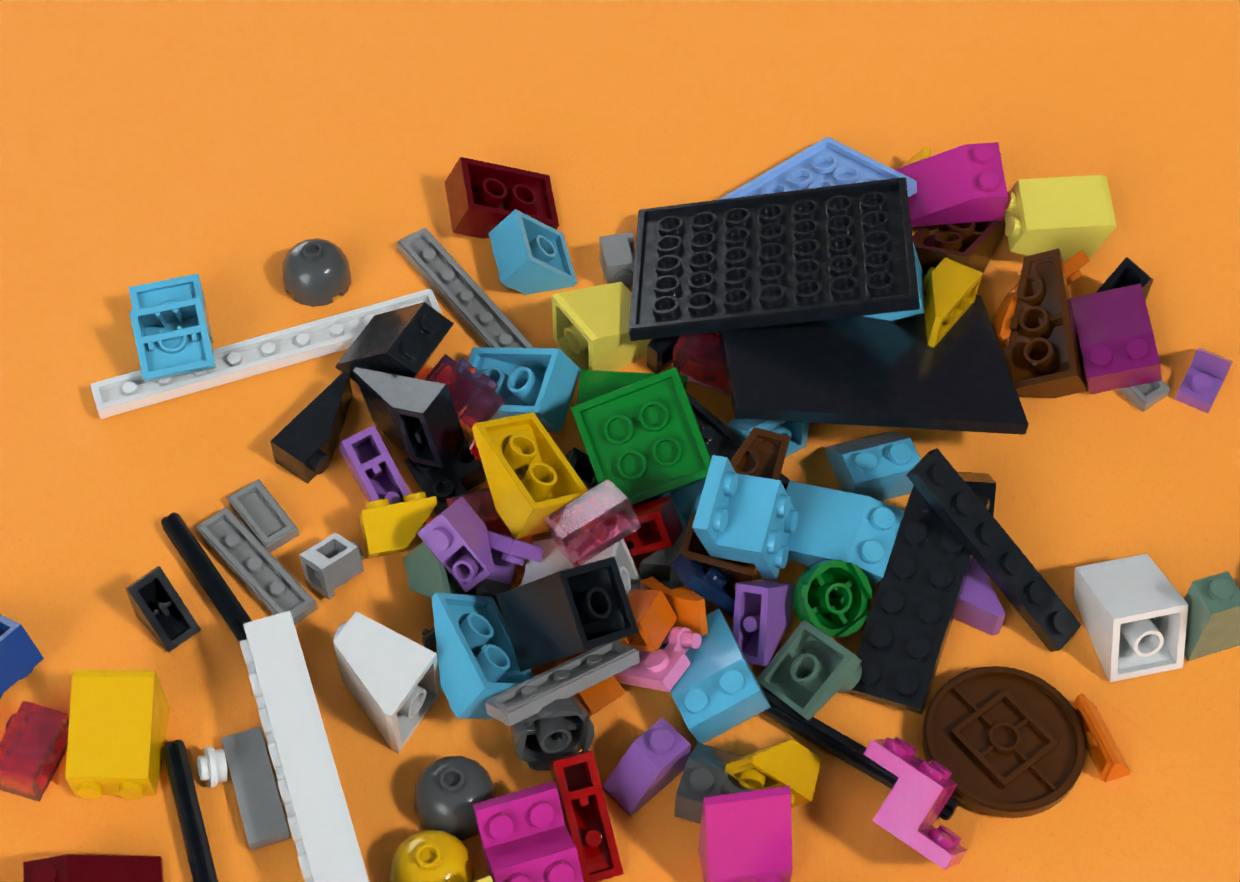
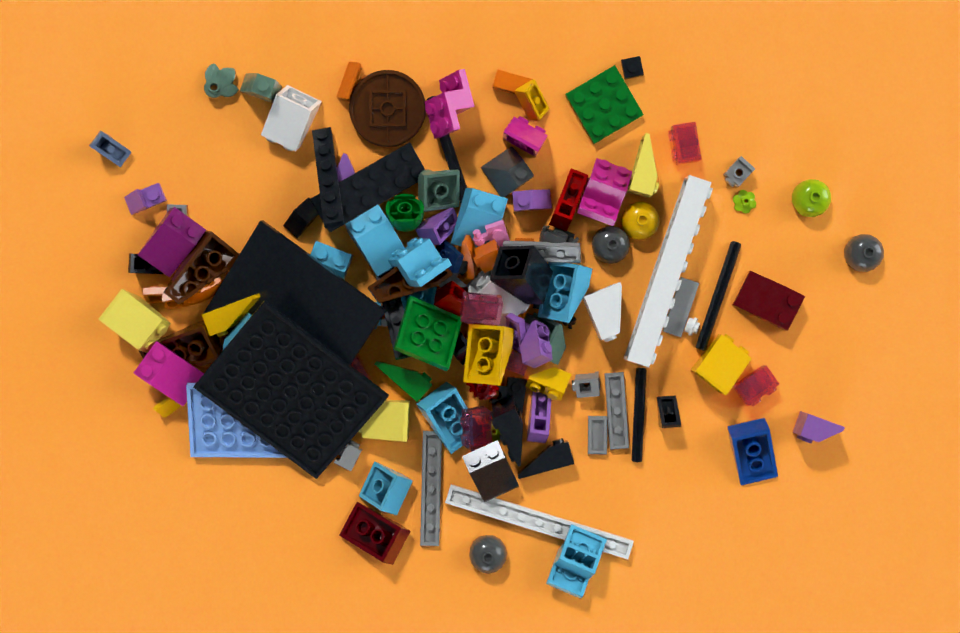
camera: 145 degrees left, 35 degrees up
(779, 766) = (486, 159): yellow slope -> none

